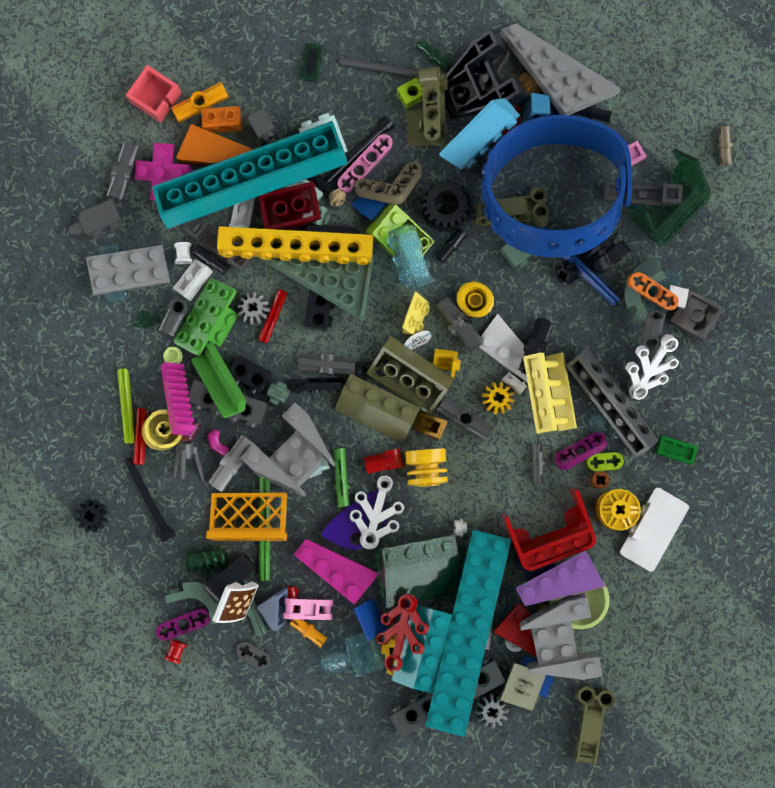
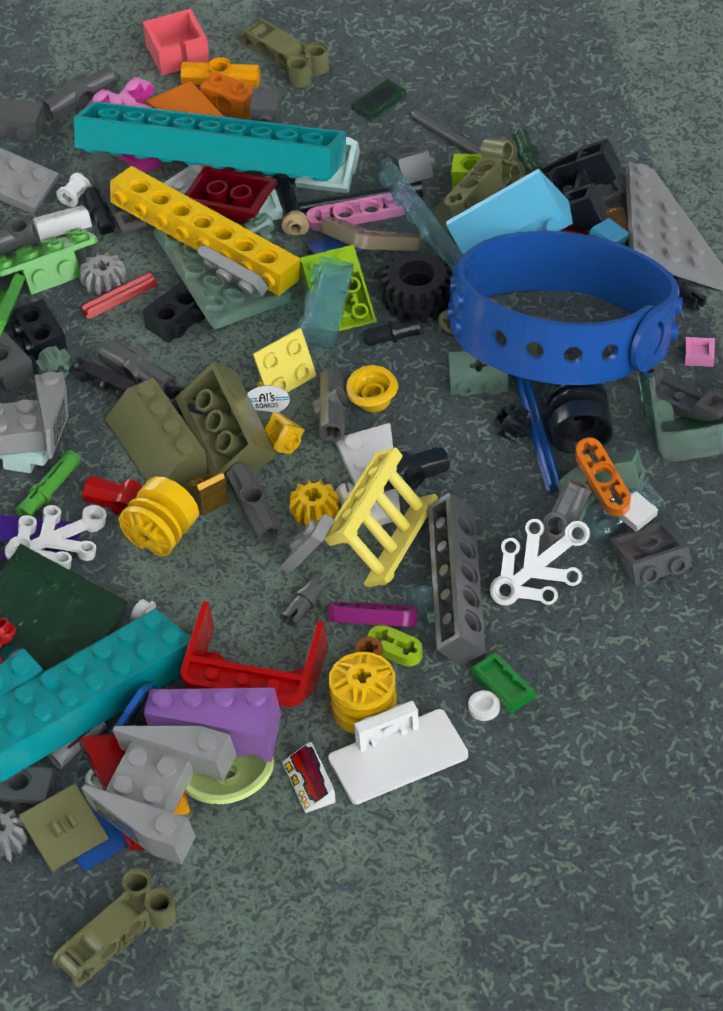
camera: 35 degrees right, 35 degrees down
(225, 57) = (286, 51): none -> olive piece
(339, 269) = (230, 270): none -> light grey hinge
(374, 111) = (412, 161): none -> dark grey brick
(409, 150) = (418, 213): none -> clear light blue plate
(509, 598) = (135, 705): none -> blue piece
(524, 434) = (307, 541): none -> light grey hinge
(619, 572) = (309, 778): none -> slope
(674, 469) = (484, 705): none -> white tile

